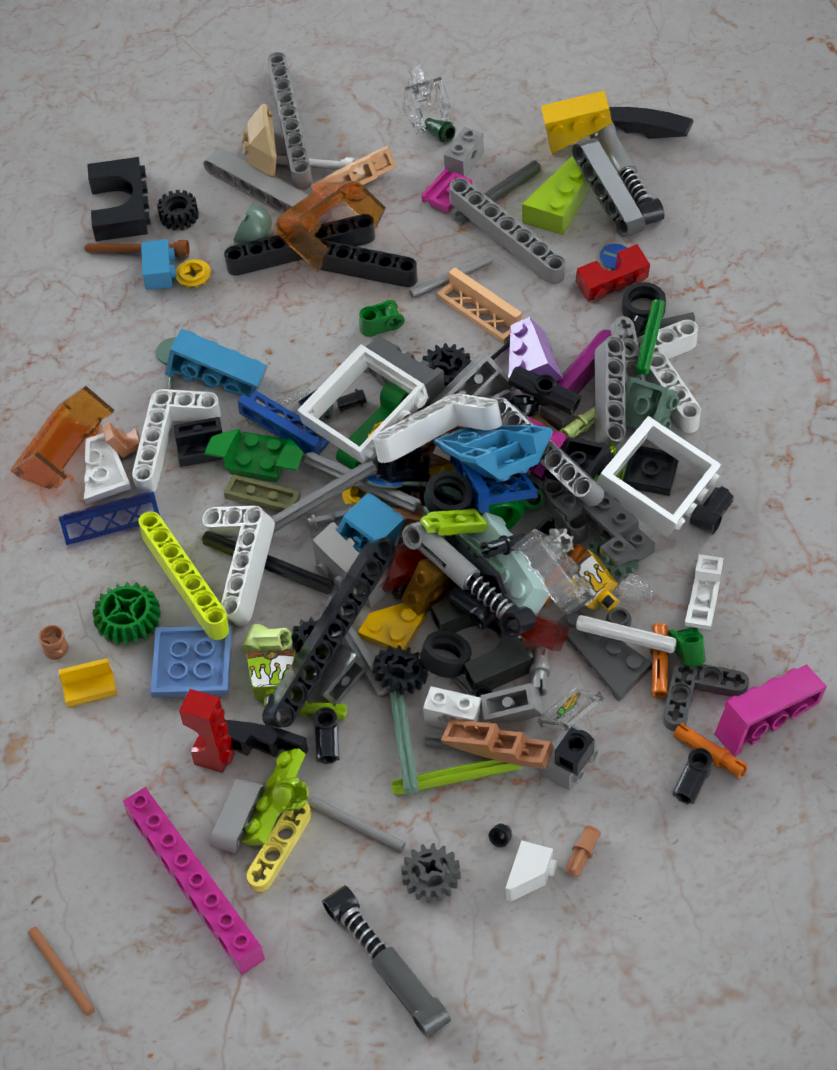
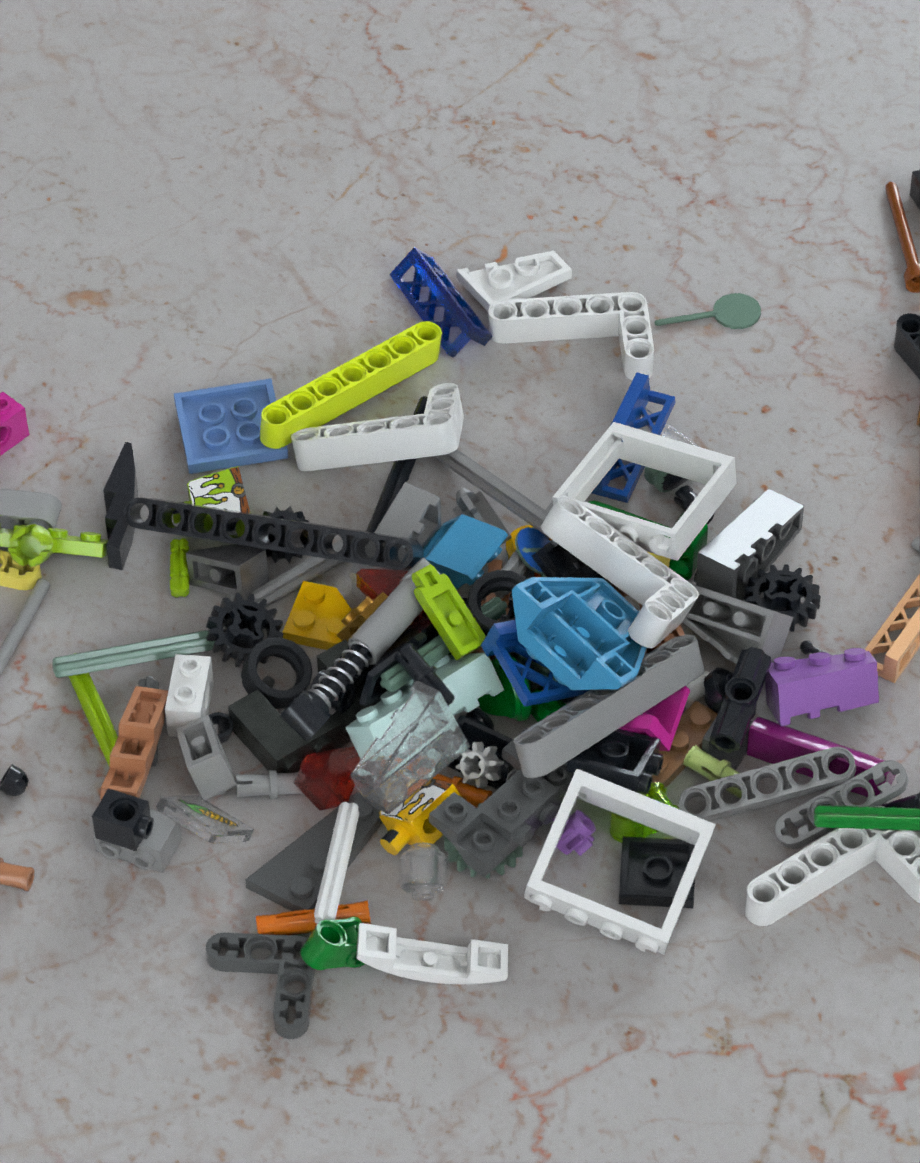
camera: 75 degrees right, 5 degrees down
(53, 642) = (235, 296): nougat wheel -> none
(60, 438) = (534, 225): clear orange windscreen -> none
(87, 682) = (182, 338): yellow panel -> none
(119, 441) = (556, 277): nougat bracket -> none
(130, 623) = (289, 354): green gear -> none
(157, 264) = (871, 254): dark azure brick -> none
(193, 440) = (585, 366): black slope -> none
(199, 267) = (879, 291): yellow gear -> none
(206, 717) = (87, 417): red arch -> none
(214, 364) = (705, 345): dark azure wedge -> none
(255, 454) = (572, 413): green piece -> none
(260, 493) = (508, 441): olive plate -> none
(265, 640) = (267, 486): yellowish green piece -> none
(326, 736) = (147, 573): black piece -> none
(379, 318) = (851, 508): green piece -> none
(619, 616) = (376, 864): dark grey plate -> none
(650, 400) = (755, 839): sand green plate -> none
(693, 777) = (124, 980): black piece -> none
(709, 515) = (581, 947): black piece -> none
(720, 756) = (162, 1009): orange pin -> none
(768, 707) = (246, 1052): dark pink wedge -> none

